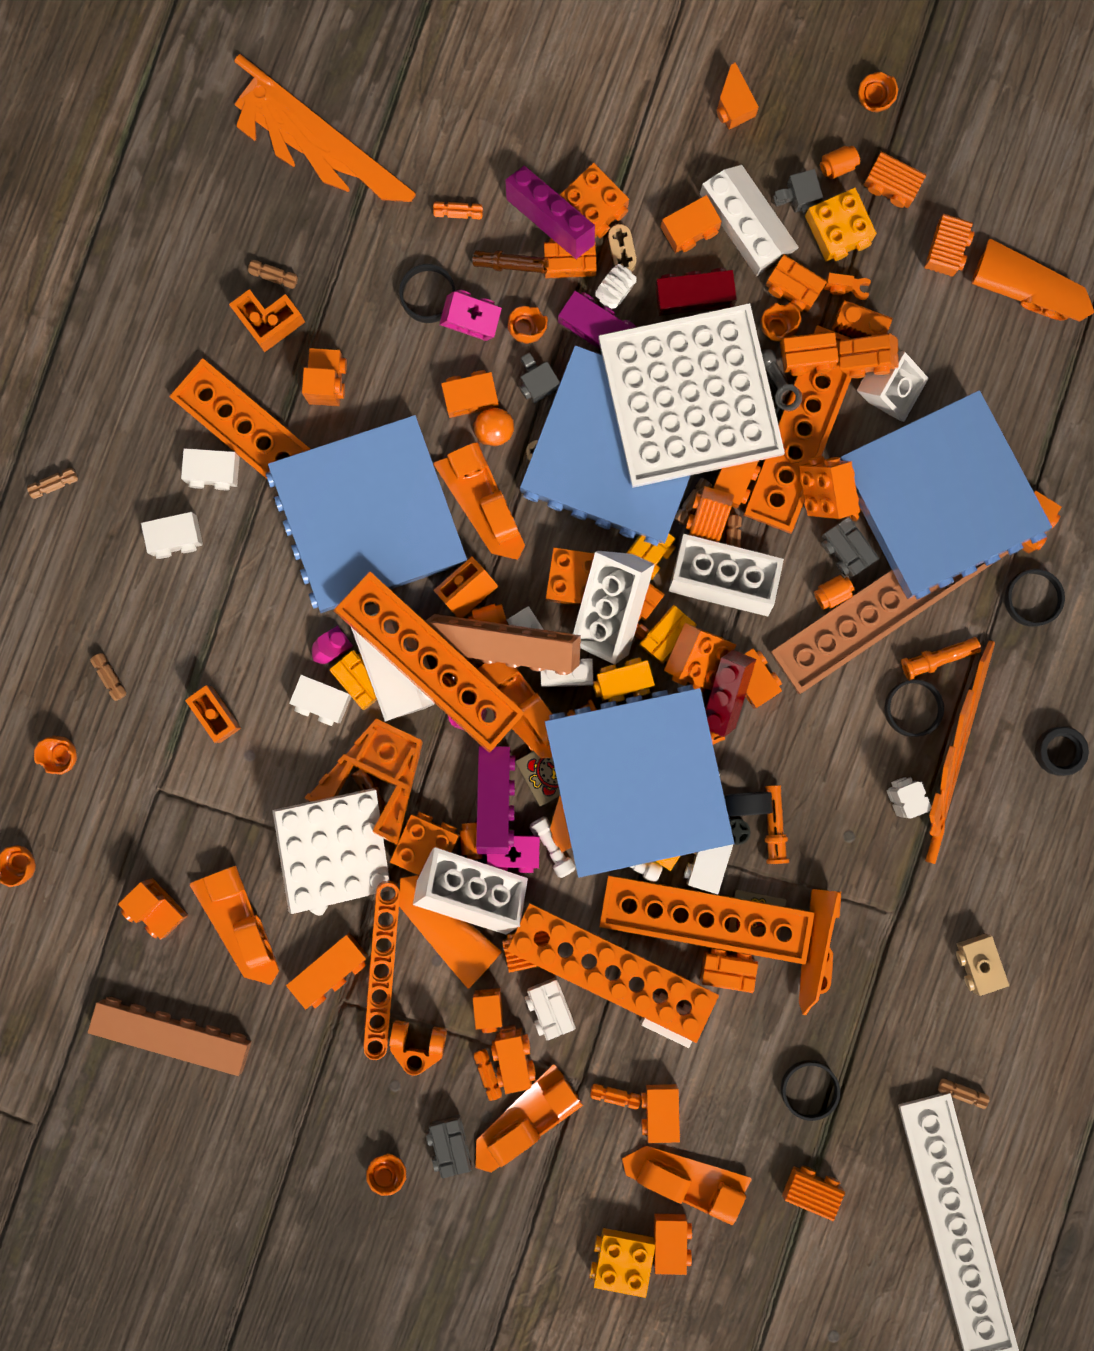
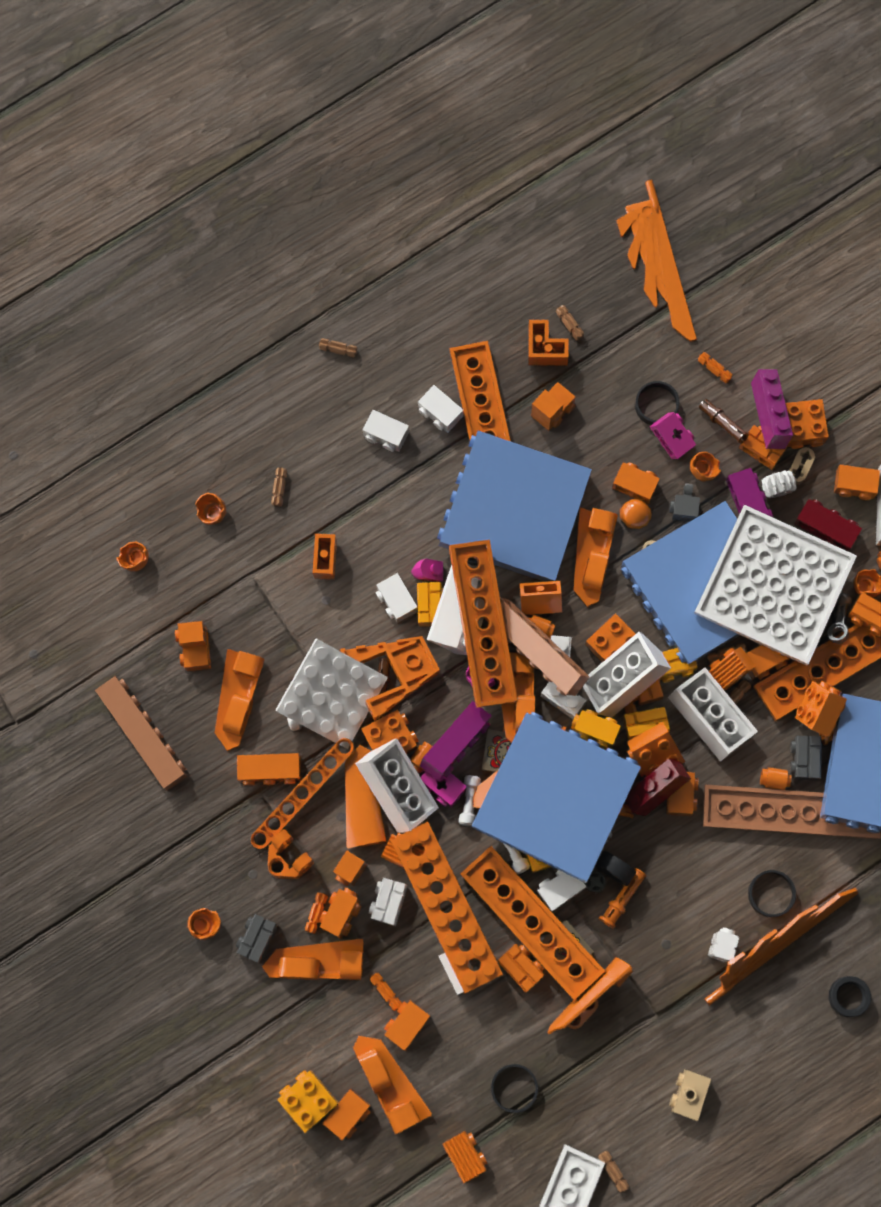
camera: 45 degrees right, 10 degrees down
(929, 661) = (805, 871): orange pin -> none

